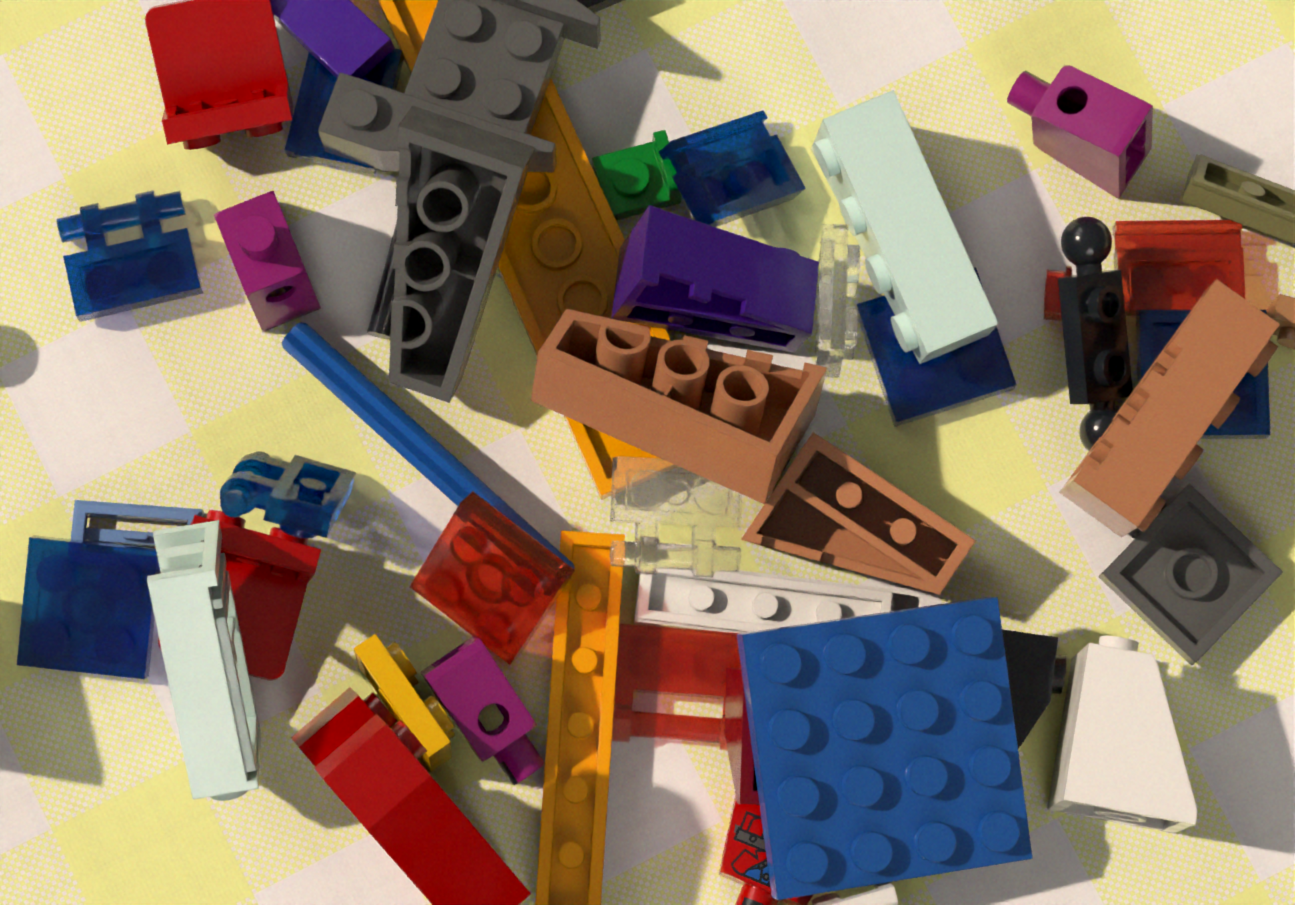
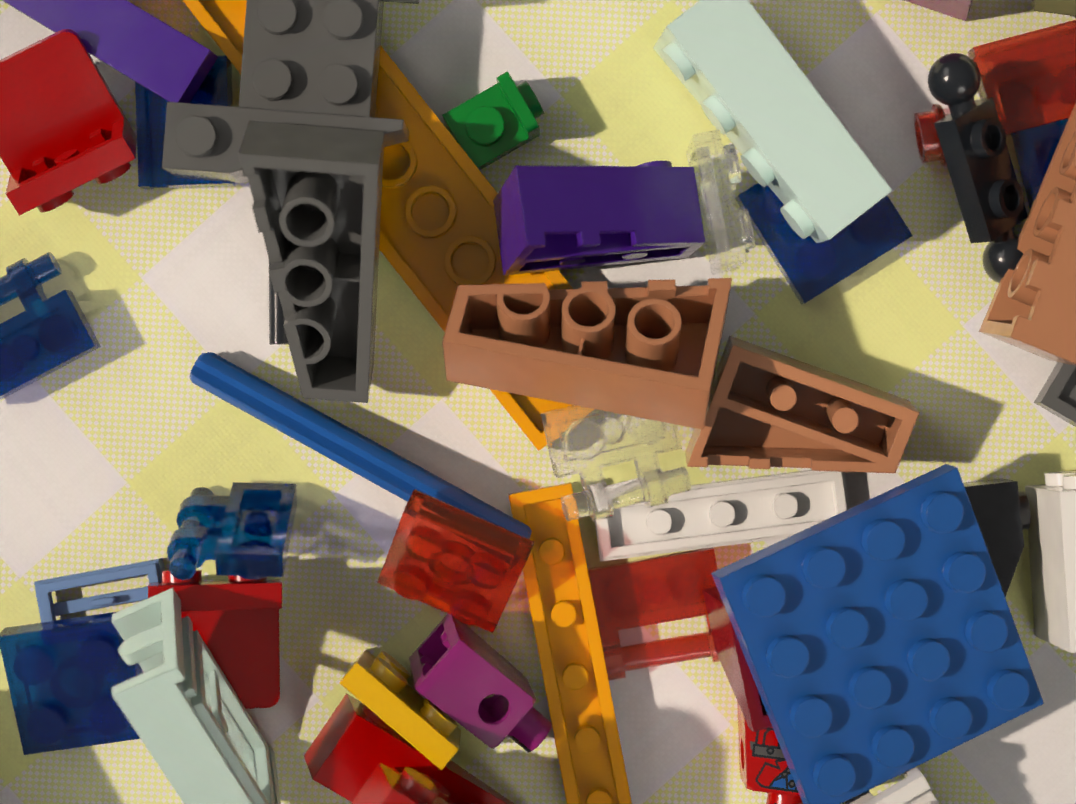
camera: 10 degrees left, 10 degrees up
(267, 260) = (150, 302): magenta torso -> none
(732, 170) = (583, 95): clear blue plate -> none

